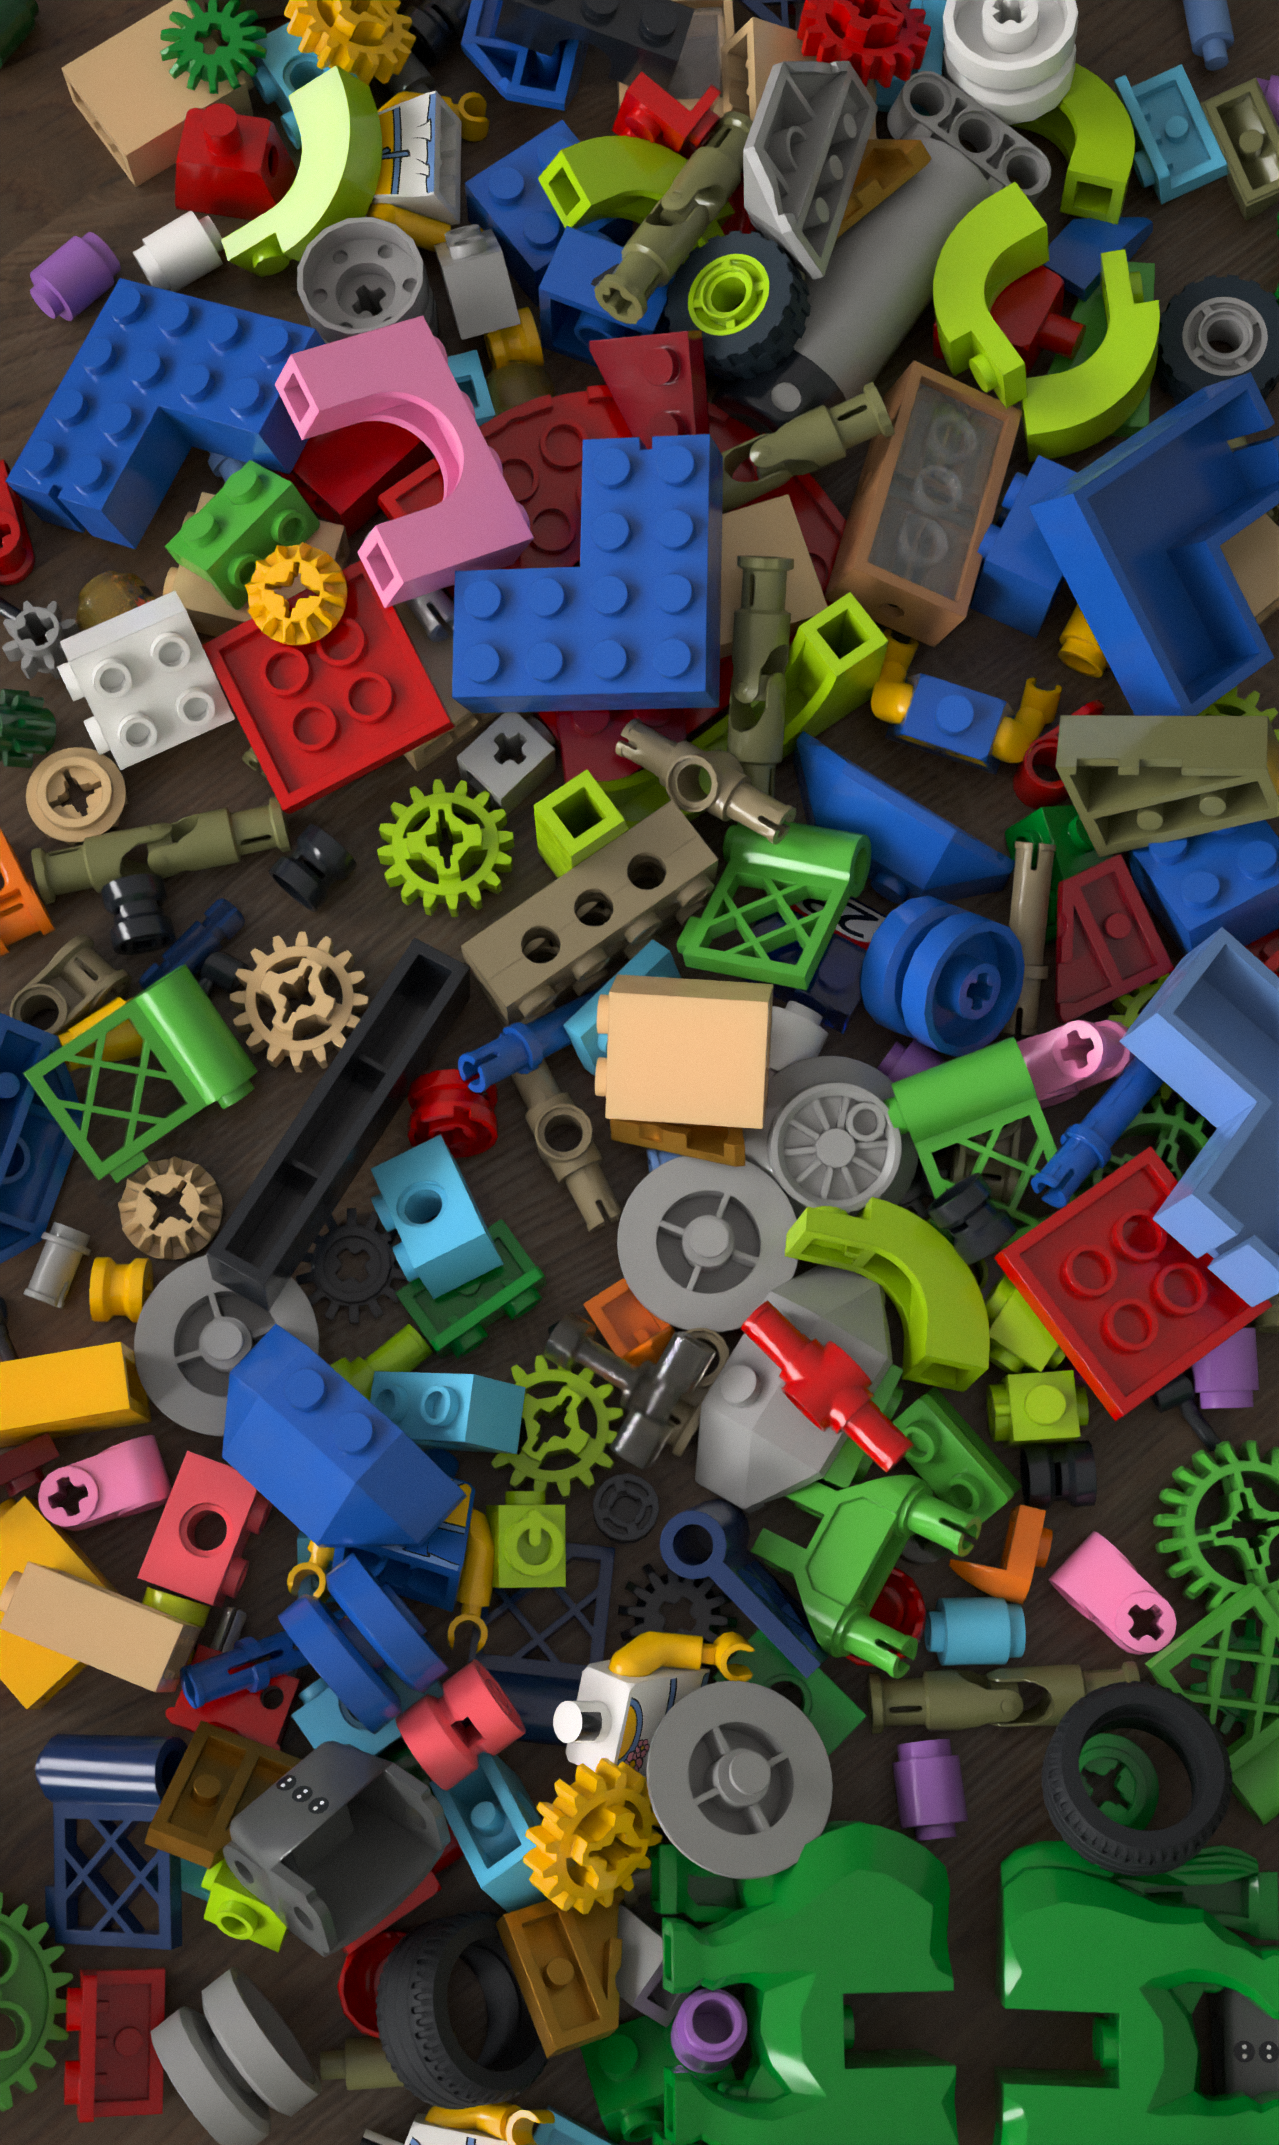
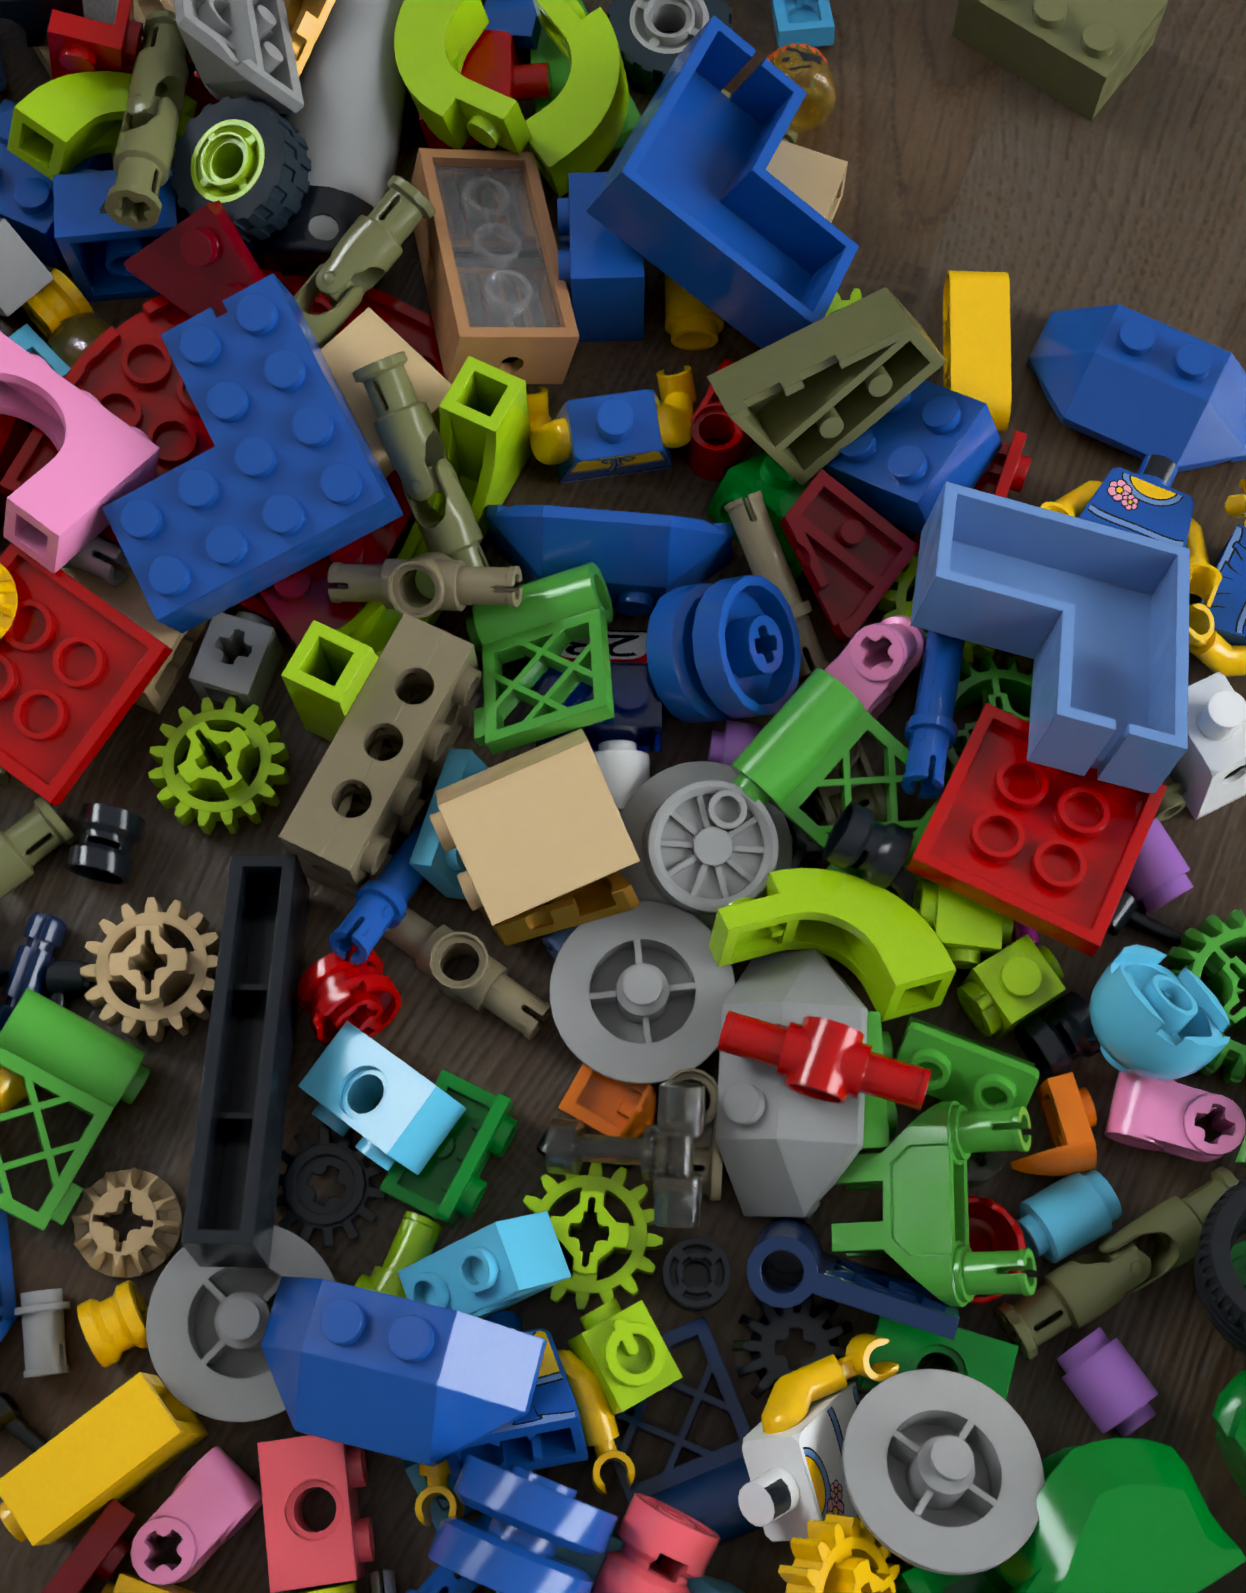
camera: 25 degrees left, 5 degrees down
(1143, 1502) = (1153, 1019): none -> medium azure cylinder

